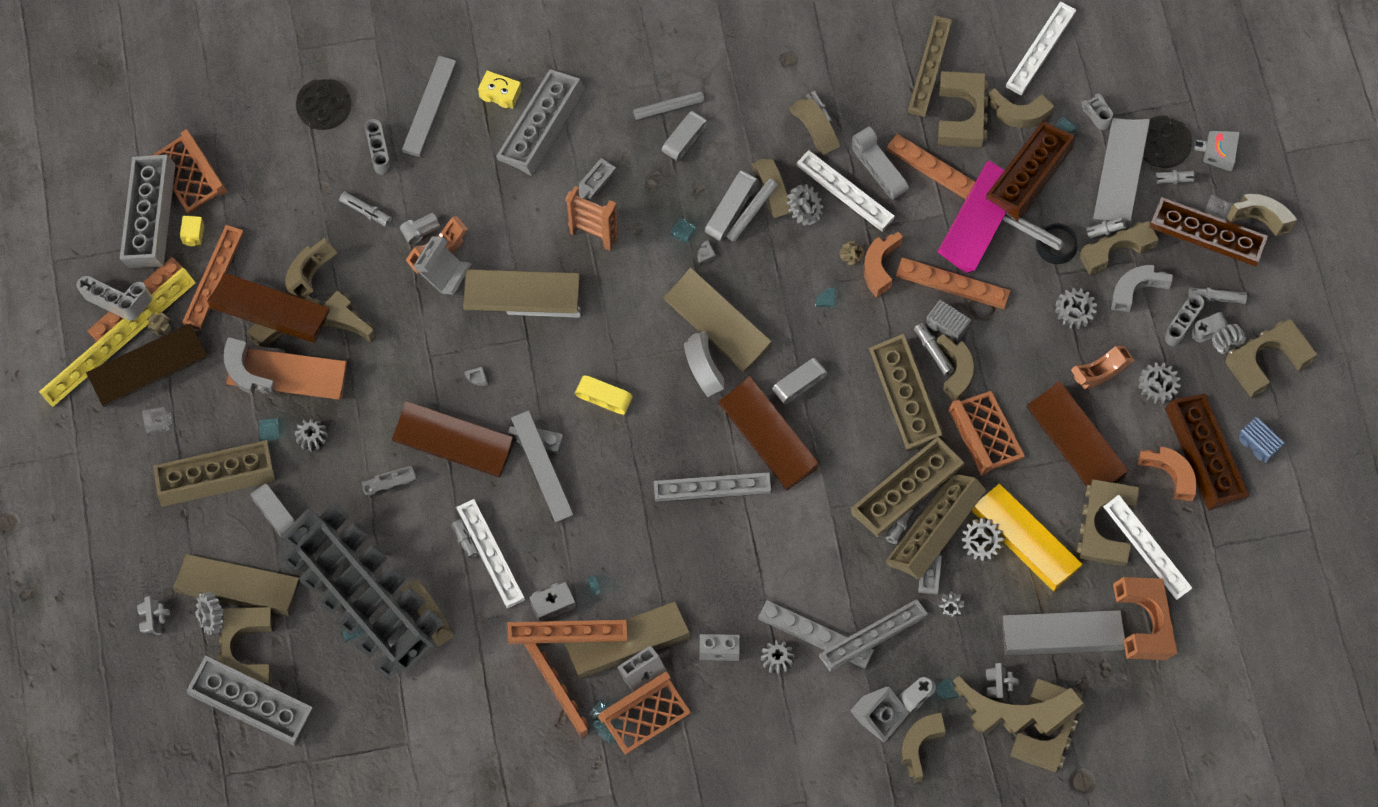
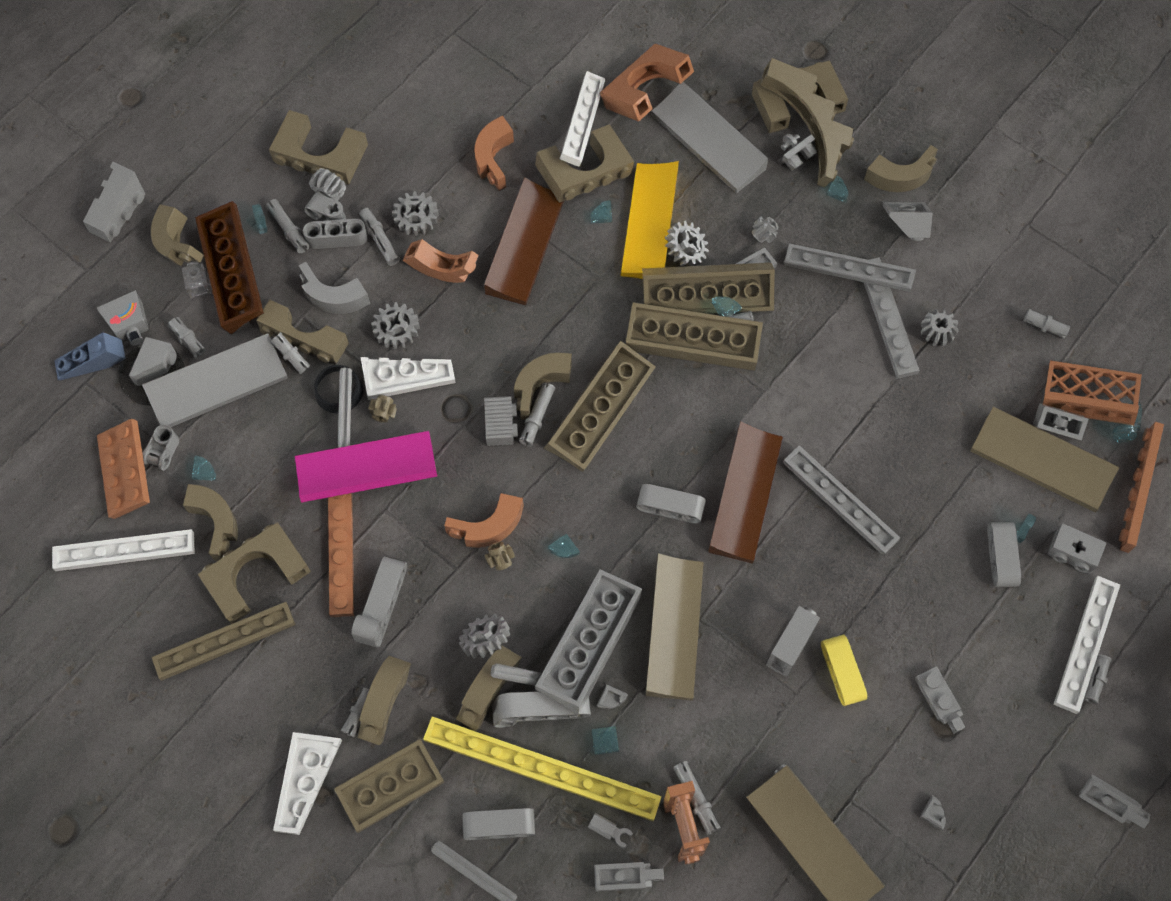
camera: 130 degrees left, 0 degrees up
(453, 439) = (1018, 779): reddish brown arch -> none
(542, 466) = (966, 666): light grey tile -> none
(567, 631) = (1097, 505): nougat plate -> none
(588, 555) = (1004, 554): none -> light grey beam
(604, 252) = (701, 806): none -> light grey pin
(628, 192) = (608, 829): none -> light grey bar
(645, 373) = (793, 640): none -> light grey window
(697, 182) = (542, 768): none -> light yellow plate
(702, 364) = (738, 597): light grey arch -> none
(719, 647) = (977, 377): light grey brick -> none
(719, 734) = (1046, 323): none -> light grey pin
(749, 259) = (589, 641): none -> light grey arch
(759, 95) = (389, 785): none -> dark tan plate
(804, 54) = (303, 777): none -> white wing
(845, 190) = (434, 616): white plate -> none
(911, 524) = (726, 306): none -> clear light blue tile
(914, 696) = (867, 201): light grey piece -> none
(953, 283) = (454, 449): nougat plate -> none
(973, 441) = (598, 319): nougat fence -> none
(1017, 256) = (382, 408): none -> dark tan gear
(1031, 169) = (278, 455): reddish brown arch -> none
(1033, 287) = (404, 375): none -> white wing
(1059, 511) = (602, 213): none -> clear light blue tile
(1100, 79) = (123, 469): none -> nougat plate
(1160, 348) = (375, 229): none -> light grey pin
(1169, 142) = (152, 361): none -> light grey slope
(1205, 110) = (91, 356): none -> sand blue slope
(1206, 451) = (448, 142): reddish brown arch -> none
(1237, 281) = (260, 218): none -> clear light blue tile
(1261, 440) = (404, 107): sand blue brick -> none
(1323, 196) = (115, 203): none -> light grey wedge

